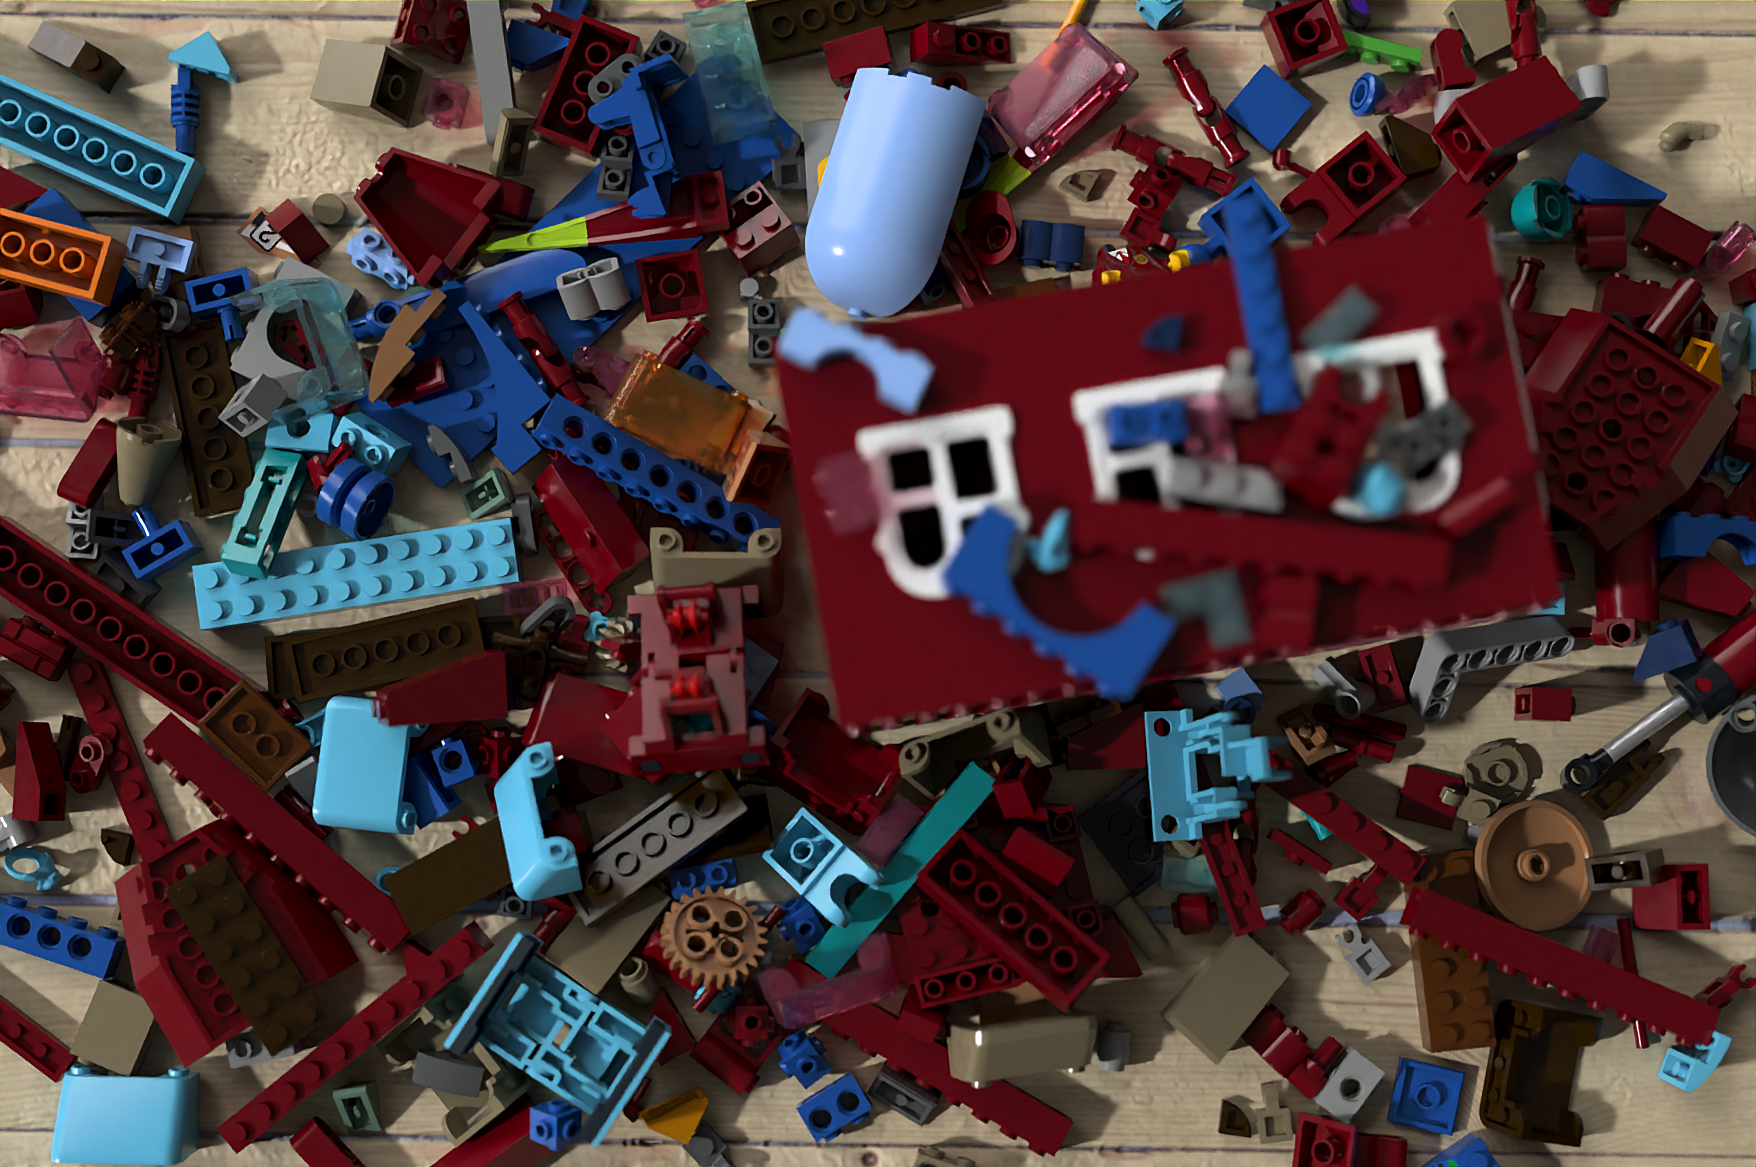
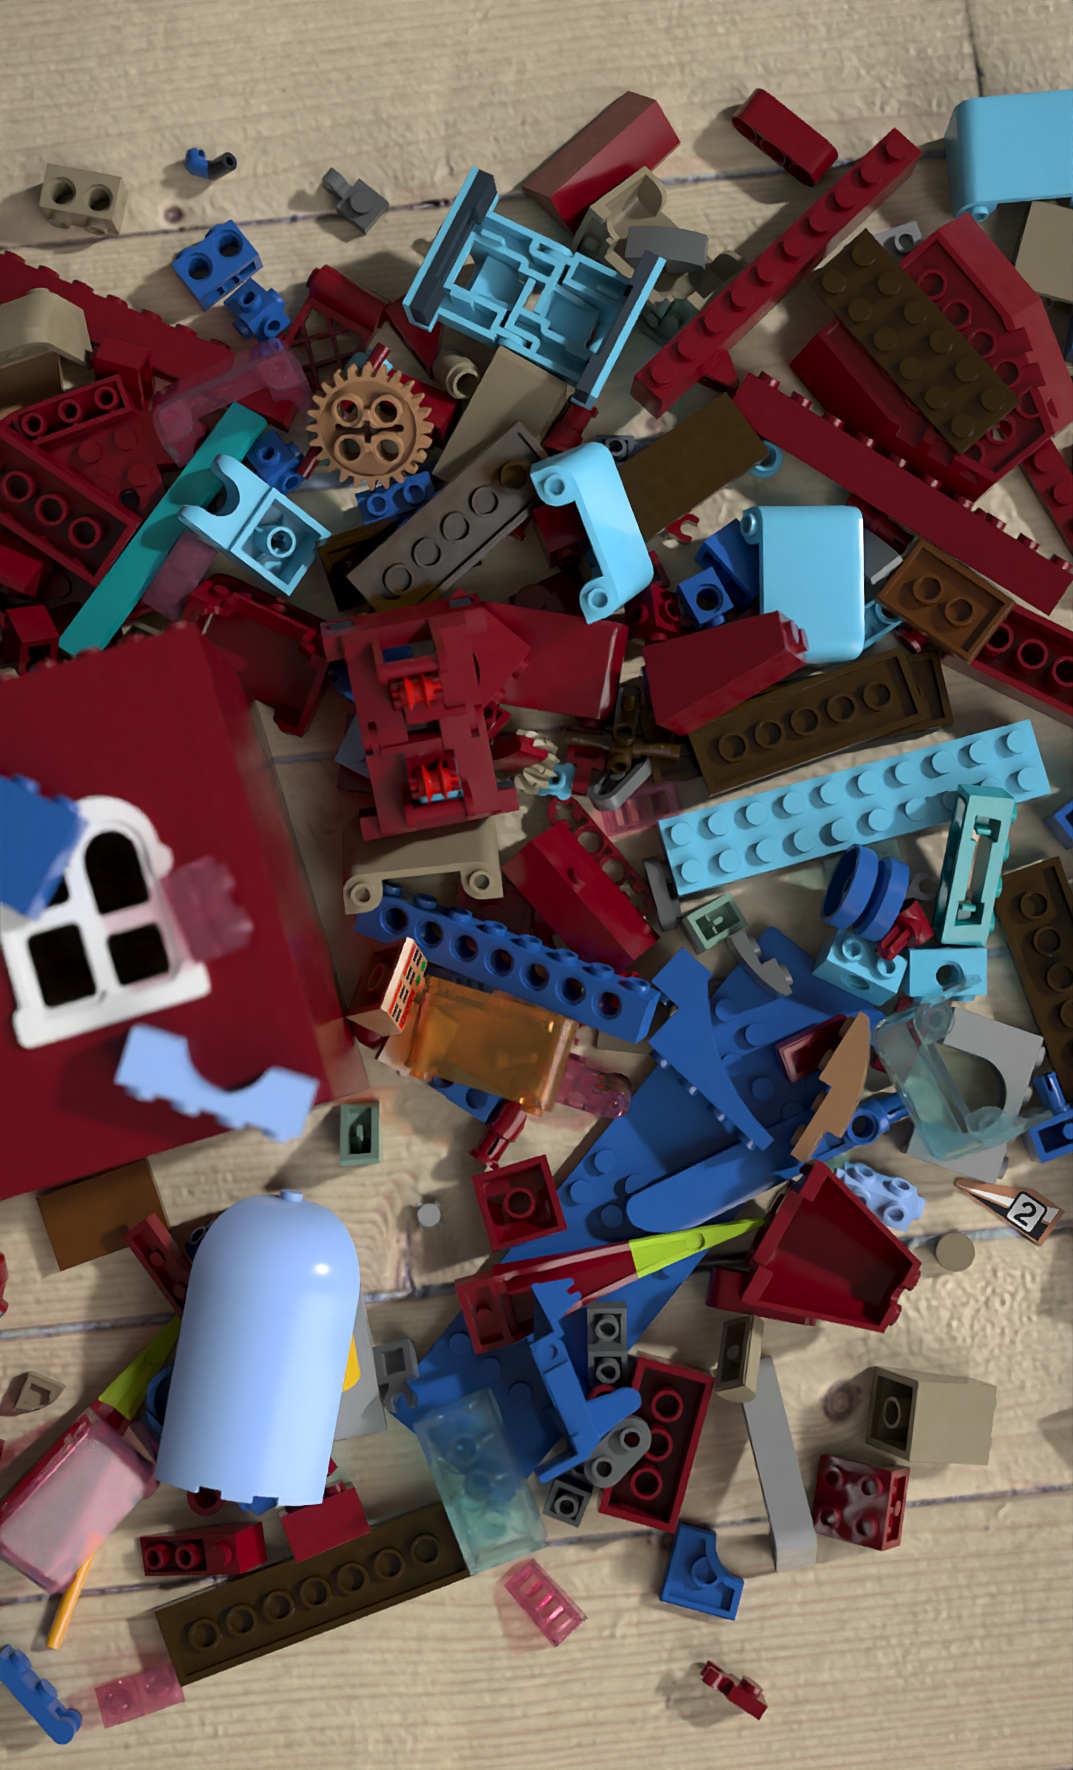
camera: 170 degrees right, 0 degrees up
(252, 405) = (1006, 994): light grey brick -> none
(291, 347) = (974, 1075): dark red beam -> none
(297, 231) = (990, 1219): dark red slope -> none
(359, 1106) = (764, 204): sand green slope -> none
(445, 90) = (833, 1417): clear pink brick -> none
(531, 332) = (684, 1123): dark red piece -> none
(533, 47) = (729, 1486): blue slope -> none
(554, 21) = (698, 1516): dark red plate -> none
(555, 1124) = (528, 196): blue brick -> none
(593, 289) = (613, 1186): light grey brick -> none
(677, 1115) = (396, 233): light orange slope -> none
(737, 1020) = (328, 353): dark red brick -> none
(757, 229) = (422, 1287): dark red slope -> none
(762, 328) = (404, 1160): dark grey slope -> none
(904, 1094) = (141, 289): dark grey slope -> none
(991, 227) = (137, 1322): dark red piece -> none
(1051, 245) = (64, 1311): dark blue brick -> none

